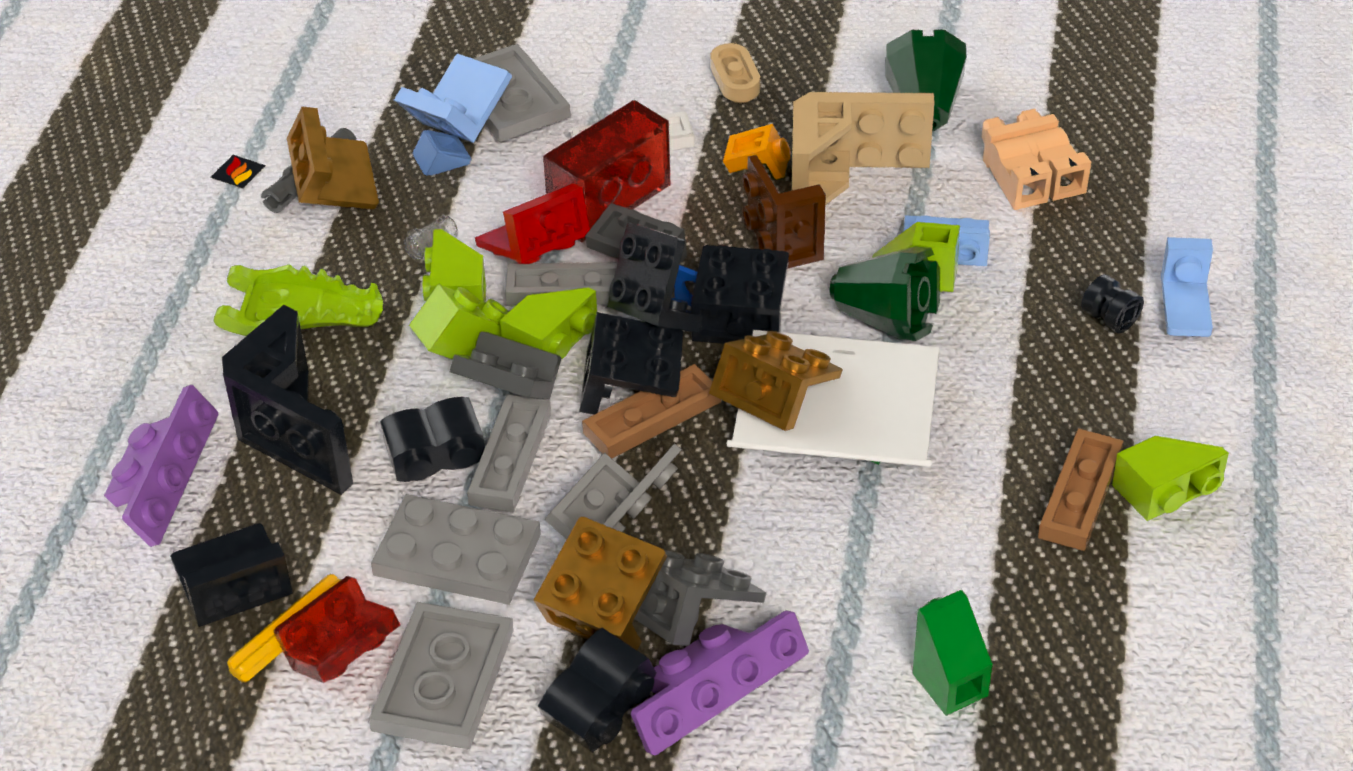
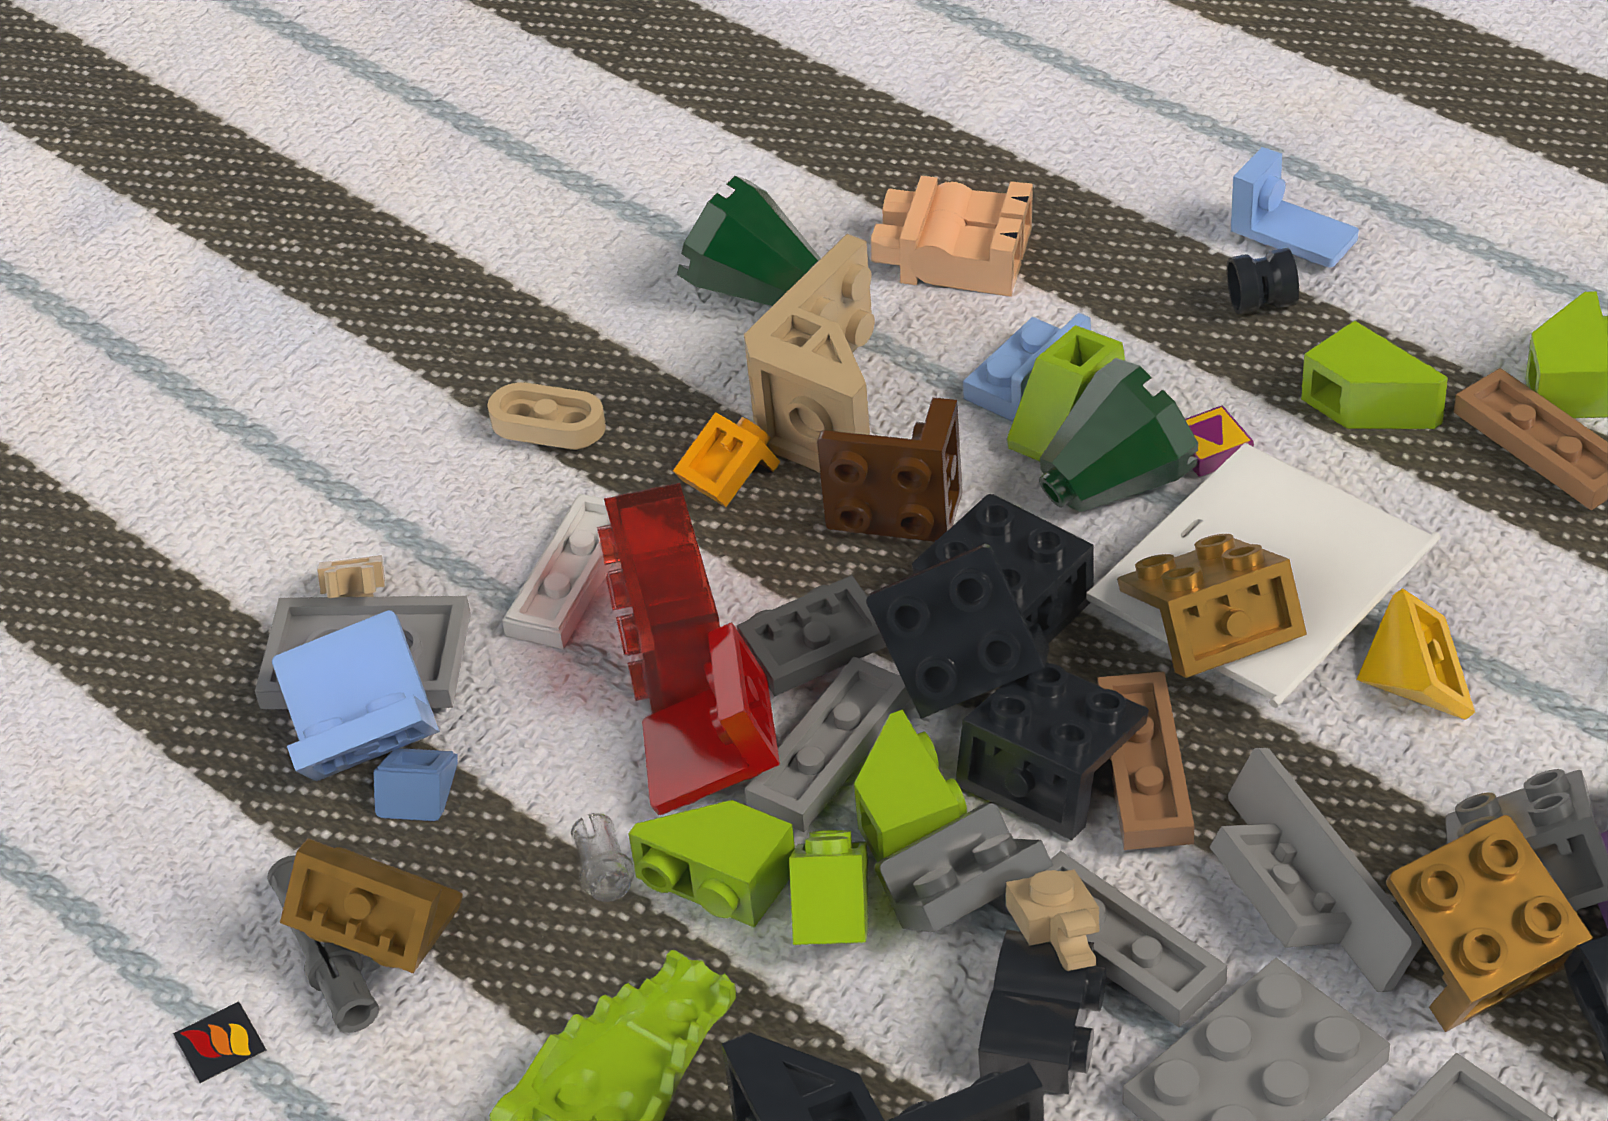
camera: 55 degrees left, 0 degrees up
(485, 406) = (1056, 910): none -> tan plate
(550, 60) = (351, 577): none -> tan plate
(833, 502) = (1417, 658): none -> yellow slope
(954, 340) = (1217, 438): none -> tile
(1056, 385) = (1372, 383): none -> lime slope

